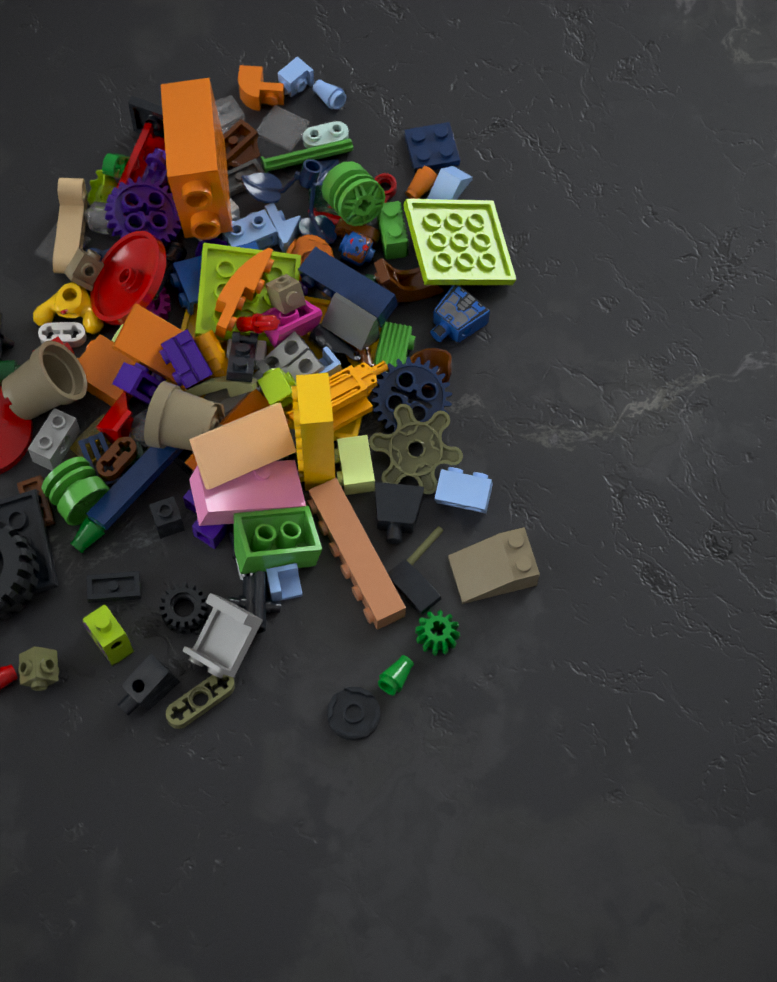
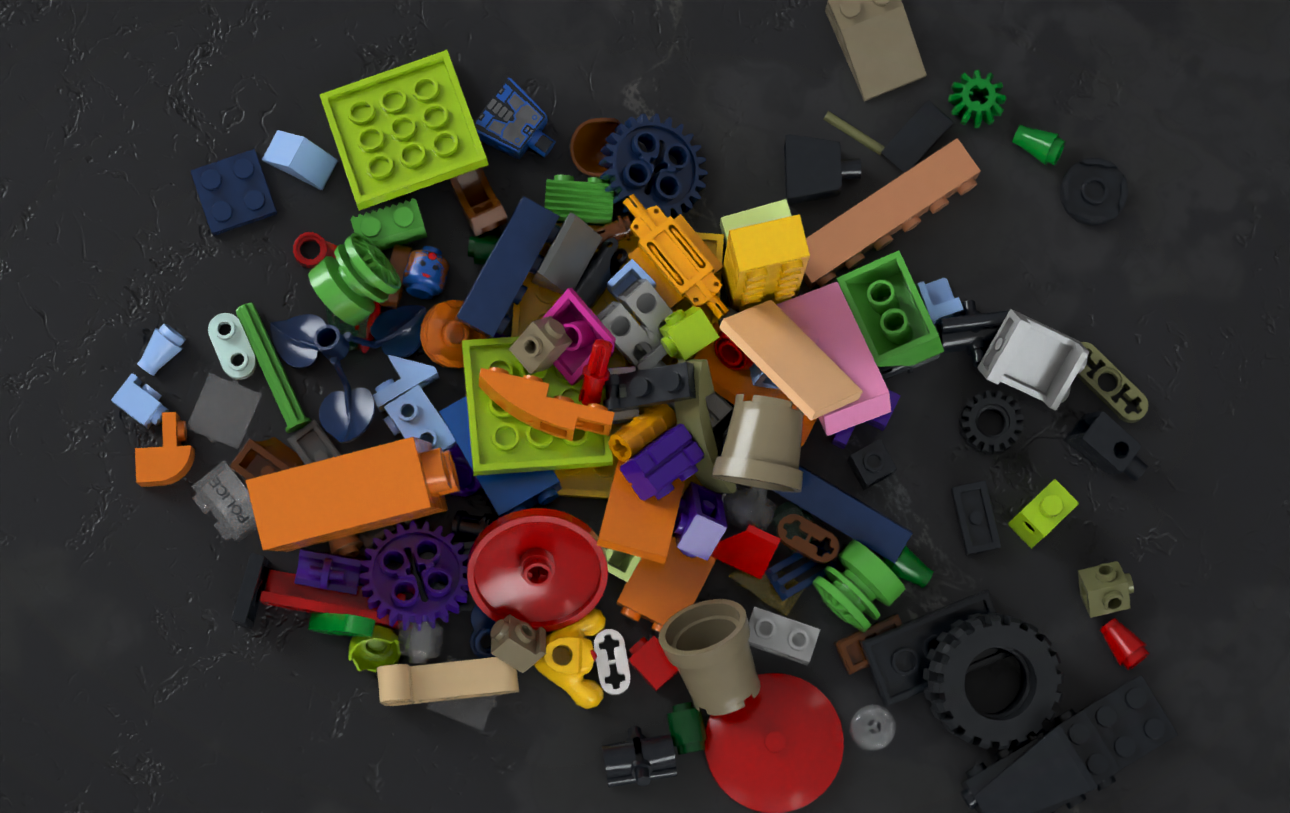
camera: 100 degrees left, 15 degrees up
(409, 432) = (748, 146): olive plate -> none
(421, 183) = (302, 198): orange cone -> none
(463, 490) = (778, 85): light blue brick -> none

